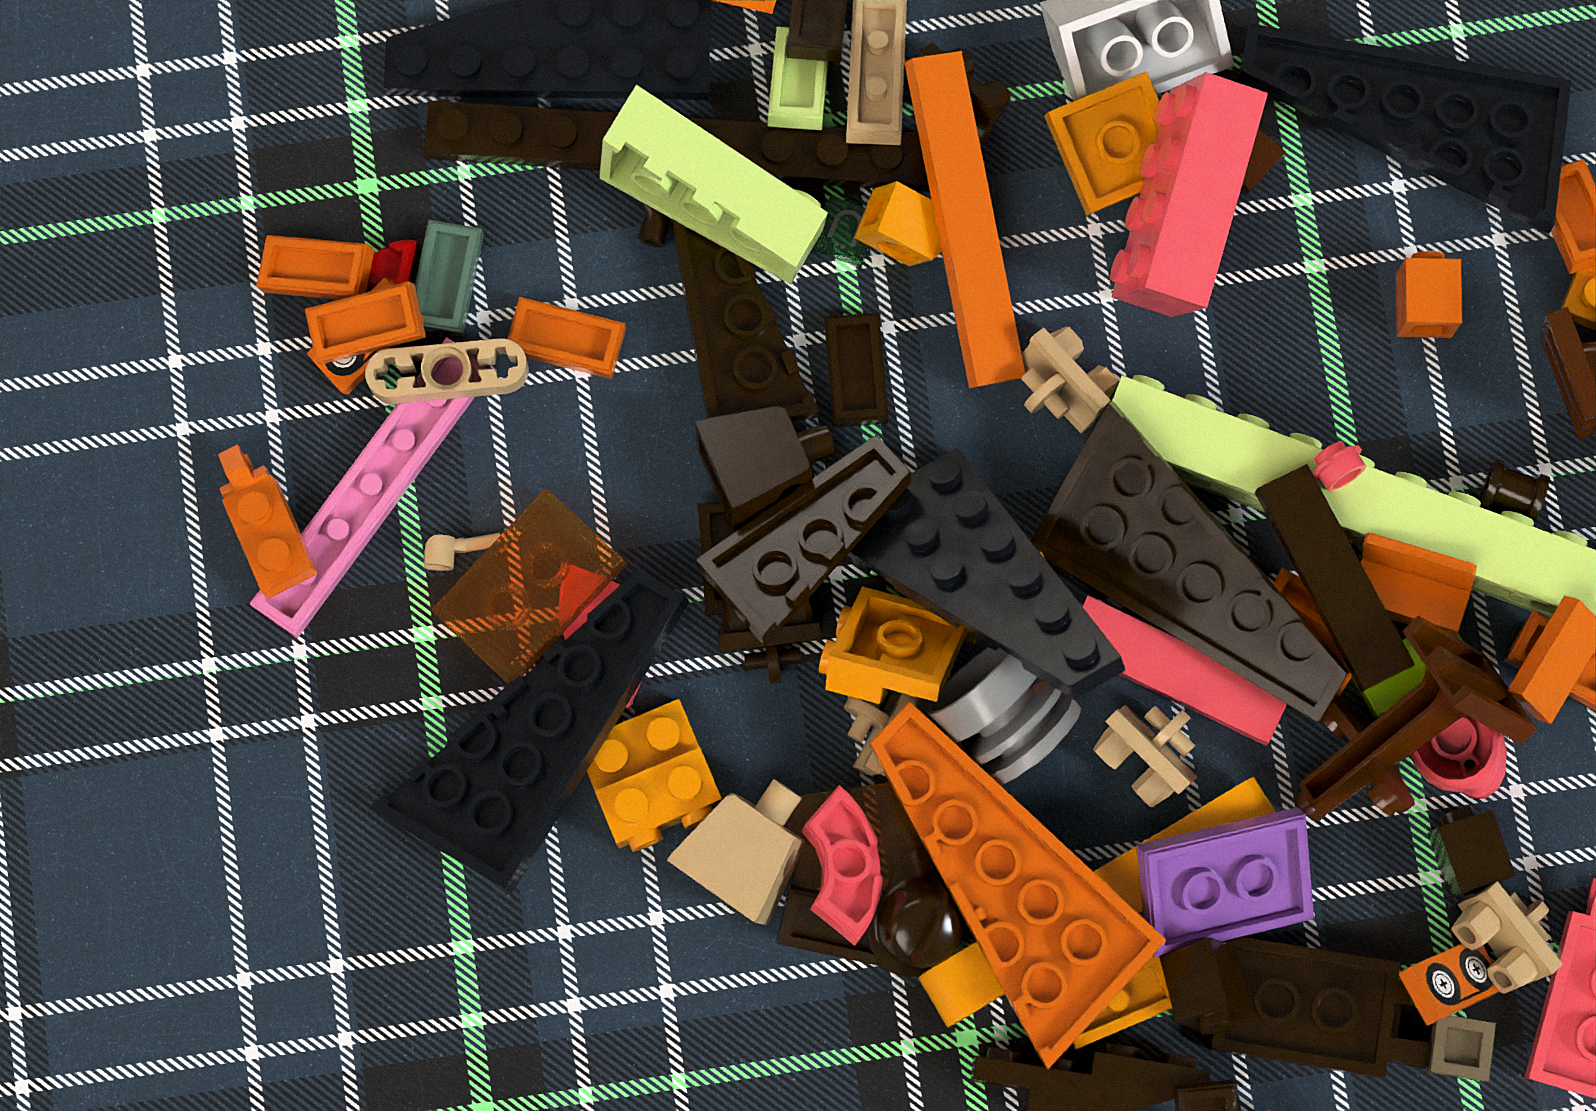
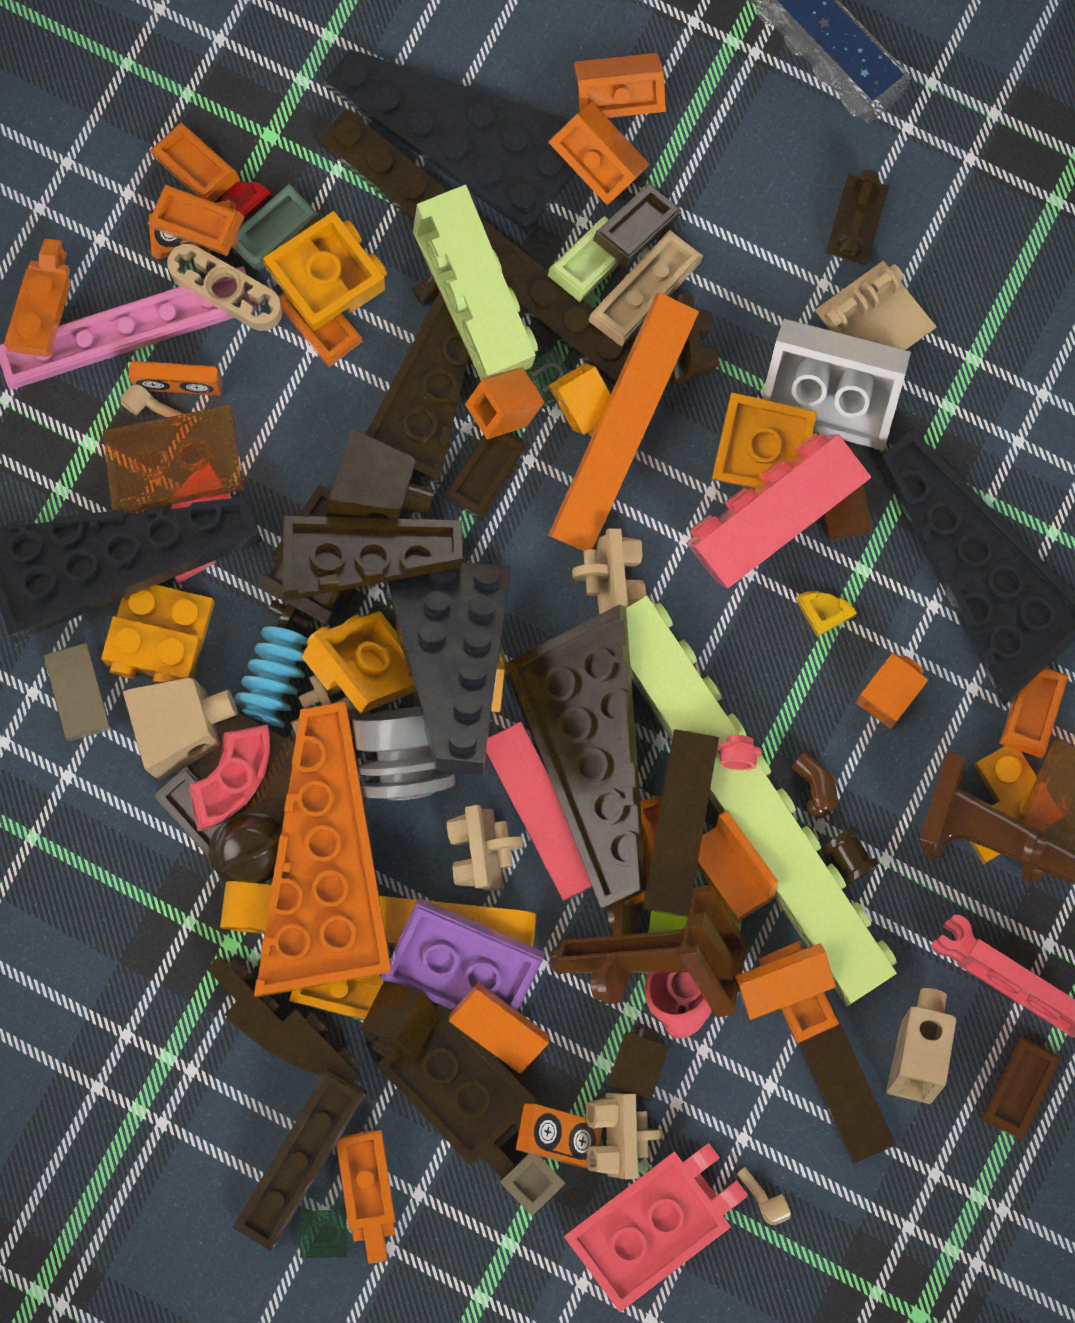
camera: 35 degrees right, 0 degrees up
(467, 500) = (176, 377): none -> orange tile
(540, 280) = (326, 270): none -> light orange plate
(612, 897) = (77, 692): none -> dark tan tile
(804, 731) = (272, 675): none -> medium azure piece
(827, 285) = (504, 403): none -> orange brick
(1298, 267) = (824, 610): none -> yellow tile
(1307, 918) = (499, 1028): none -> orange tile
(1430, 439) = (822, 785): none -> reddish brown arm

